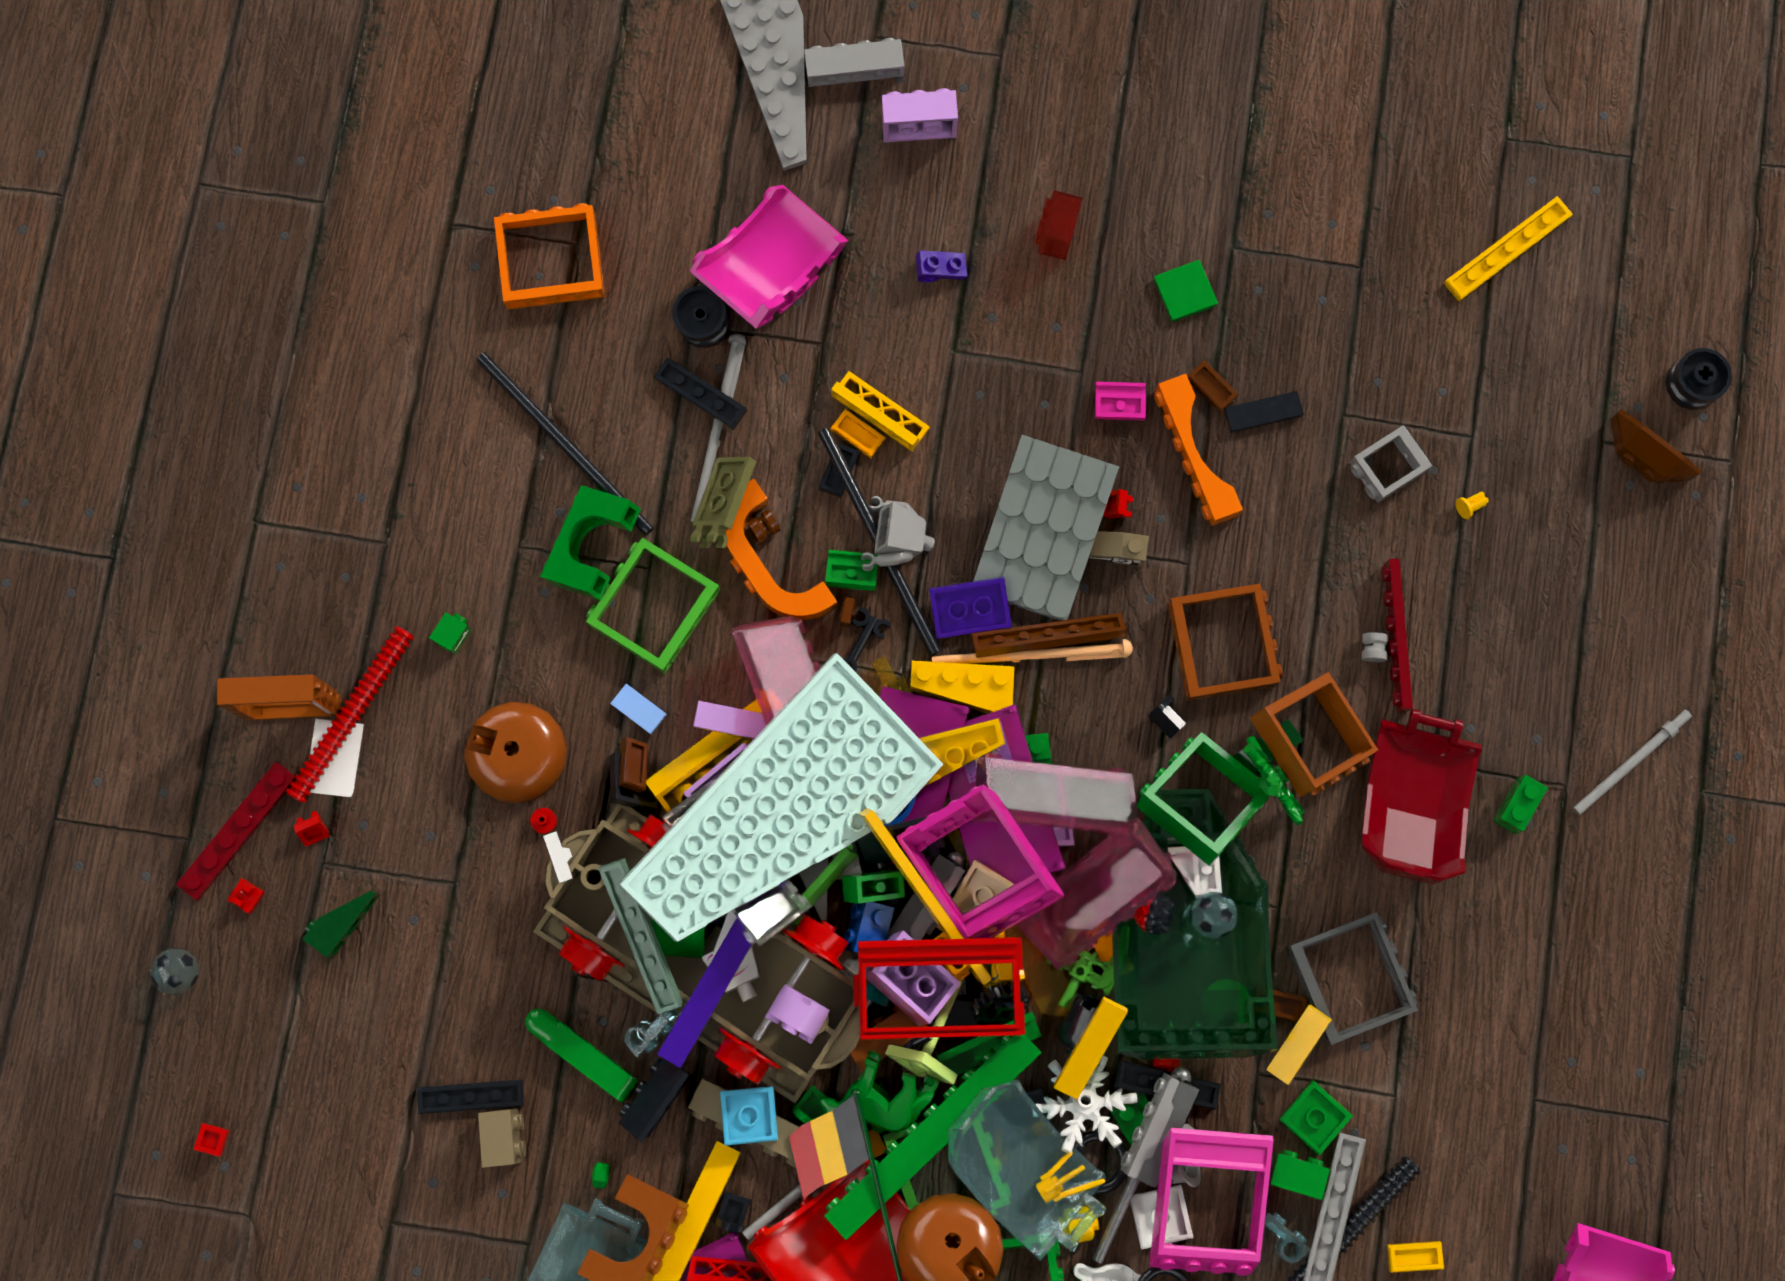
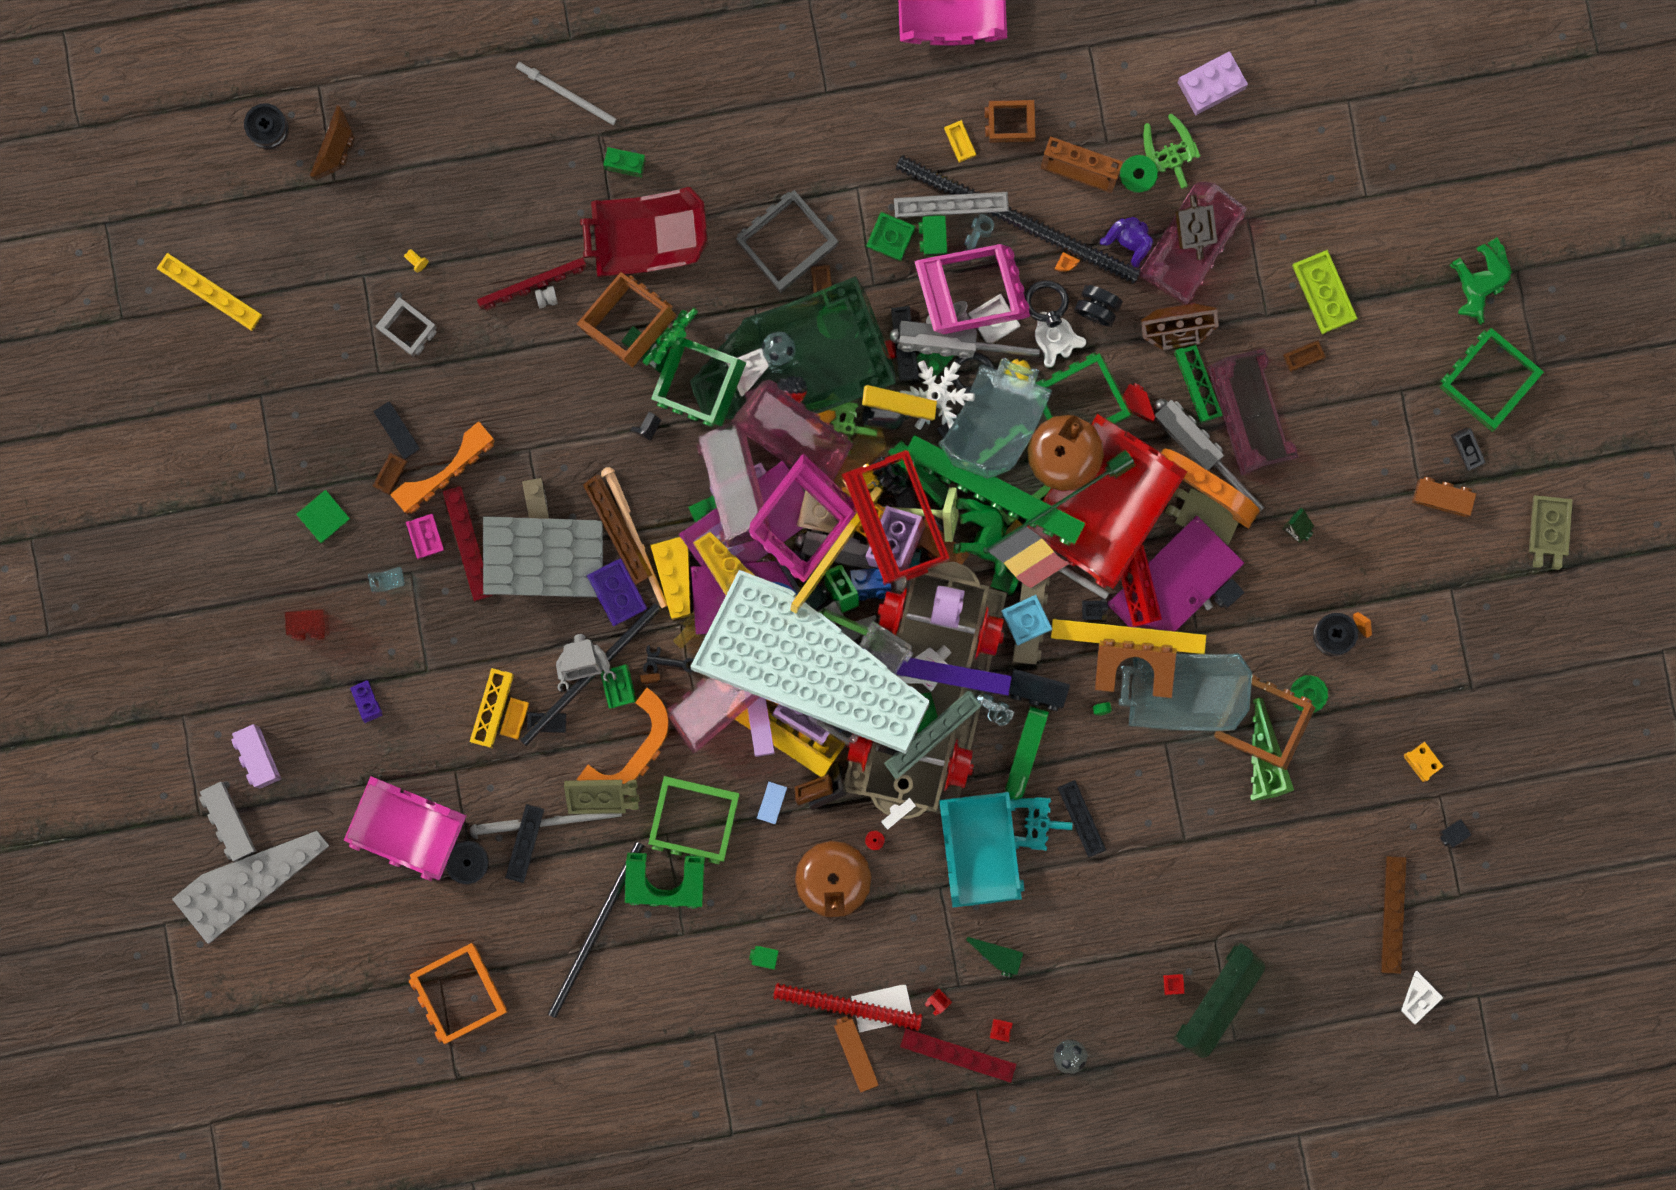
camera: 105 degrees left, 5 degrees up
(160, 1195) = (1221, 1002): none -> clear green windscreen
(476, 950) = (981, 849): none -> teal panel
(484, 1041) = (1041, 823): none -> teal bar
(501, 1137) = (1102, 784): dark tan brick -> none
(758, 528) = (611, 764): reddish brown wheel -> none
(1050, 1187) = (1001, 399): yellow plant -> none
(1081, 340) = (387, 580): none -> clear light blue bracket
(1112, 449) = (466, 540): none -> dark red plate
(1117, 505) = (503, 511): red tile -> none
(1184, 651) = (593, 431): dark orange window -> none
(1299, 1044) = (845, 263): yellow tile -> none

